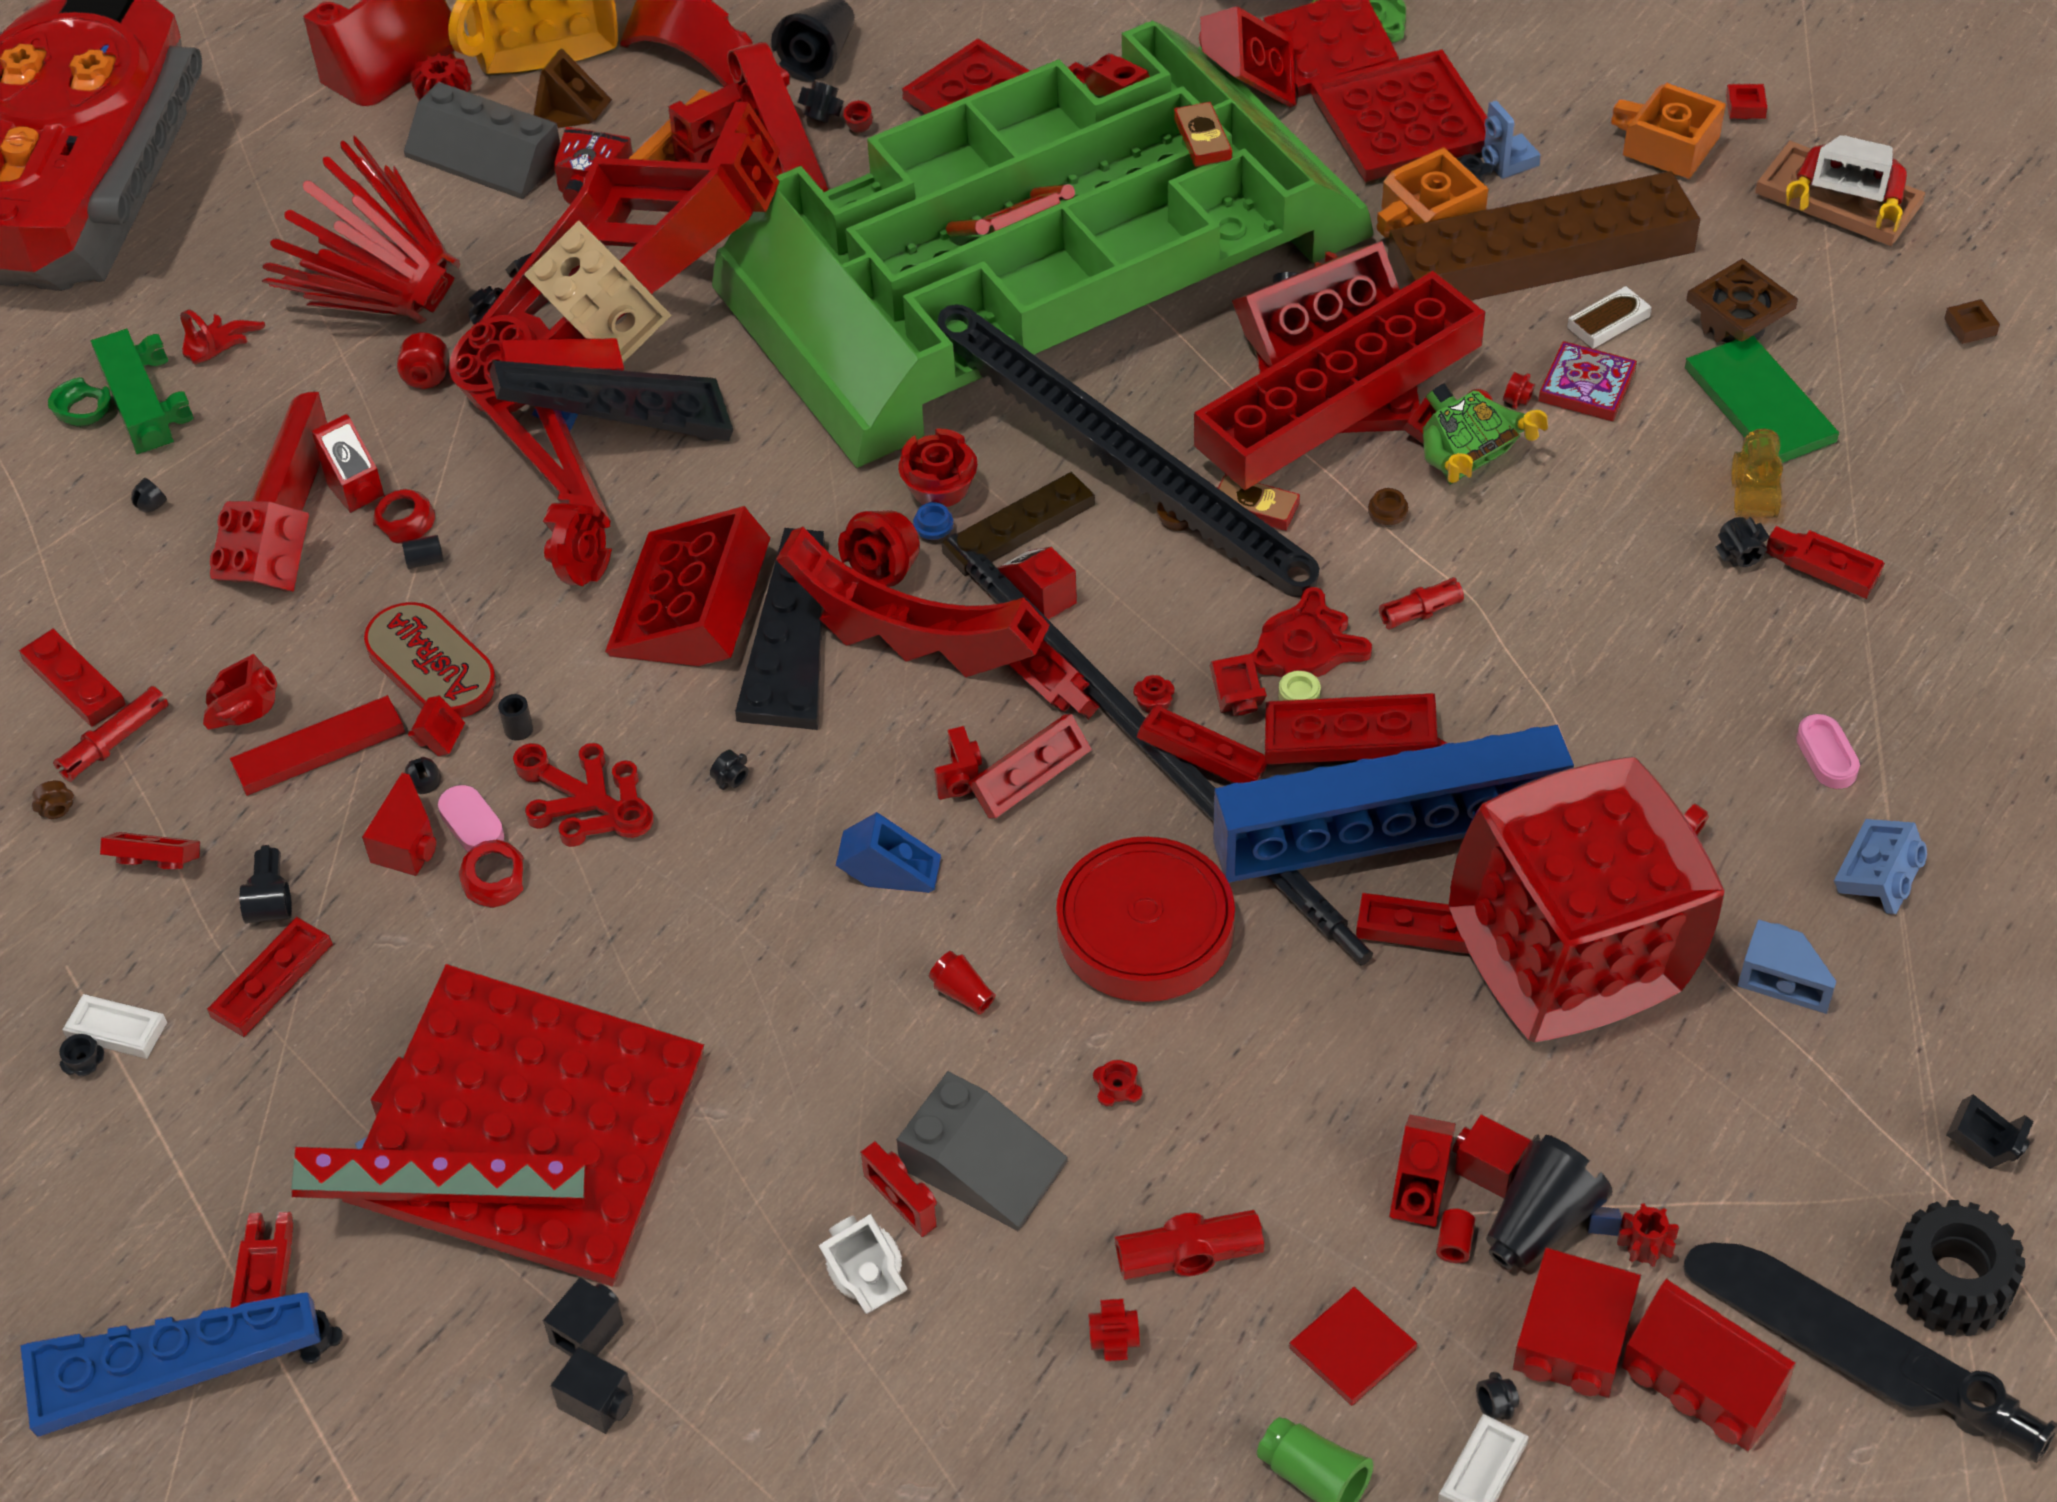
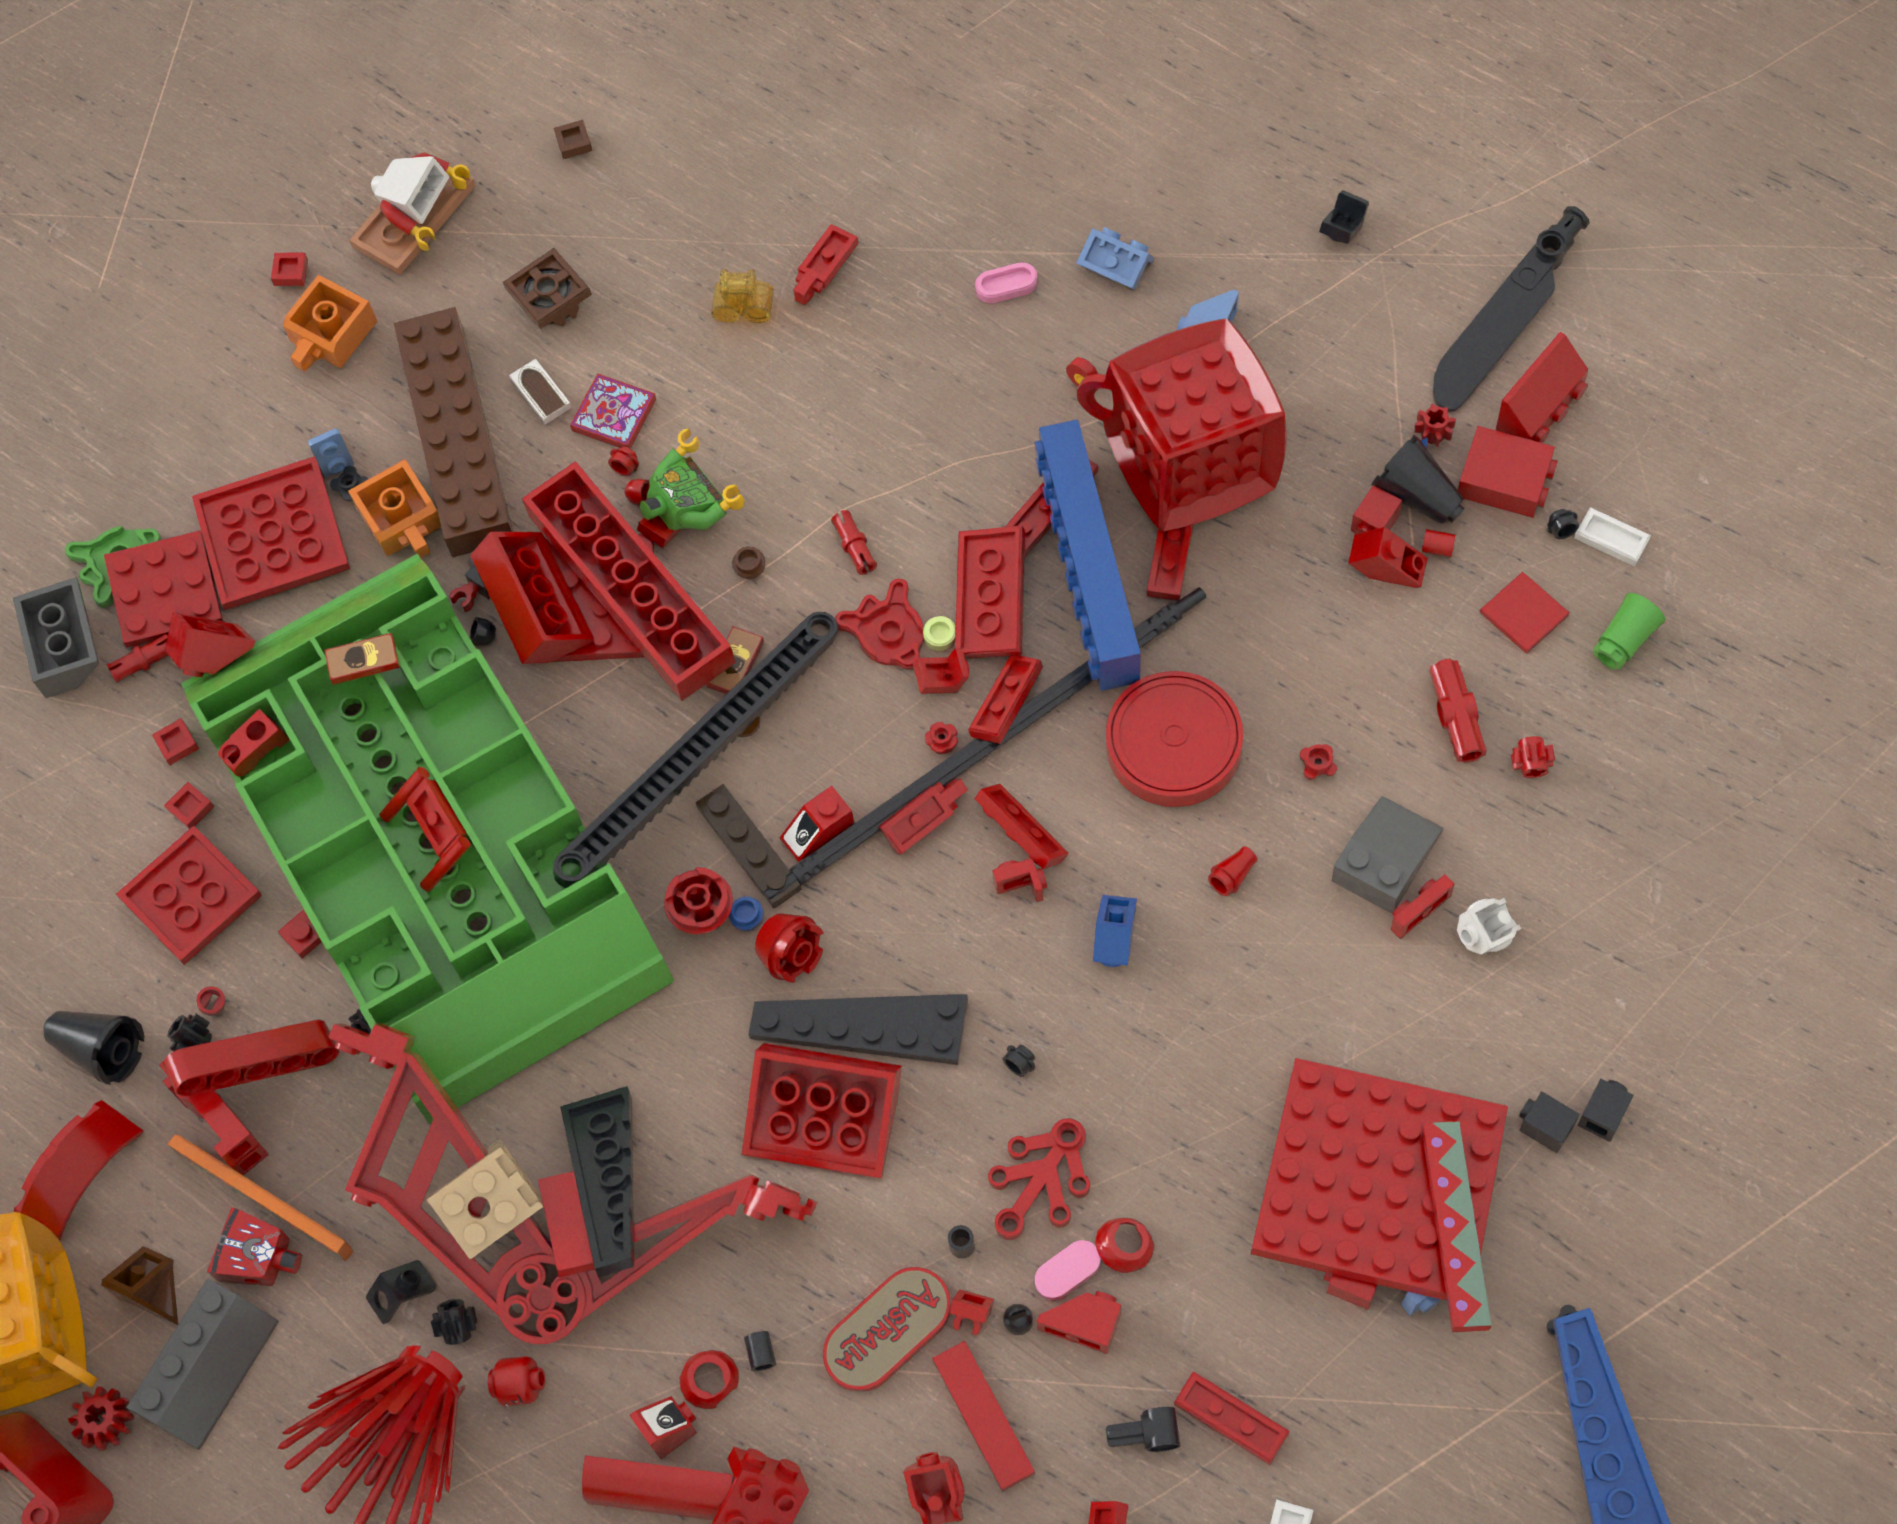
camera: 85 degrees left, 15 degrees up
(263, 1263) = (1517, 1373): red hinge -> none
(861, 608) = (876, 921): red arch -> none
(1742, 542) = (806, 314): black gear -> none
(1761, 395) = (645, 292): green tile -> none
(1952, 1300) = (1457, 227): black tyre -> none

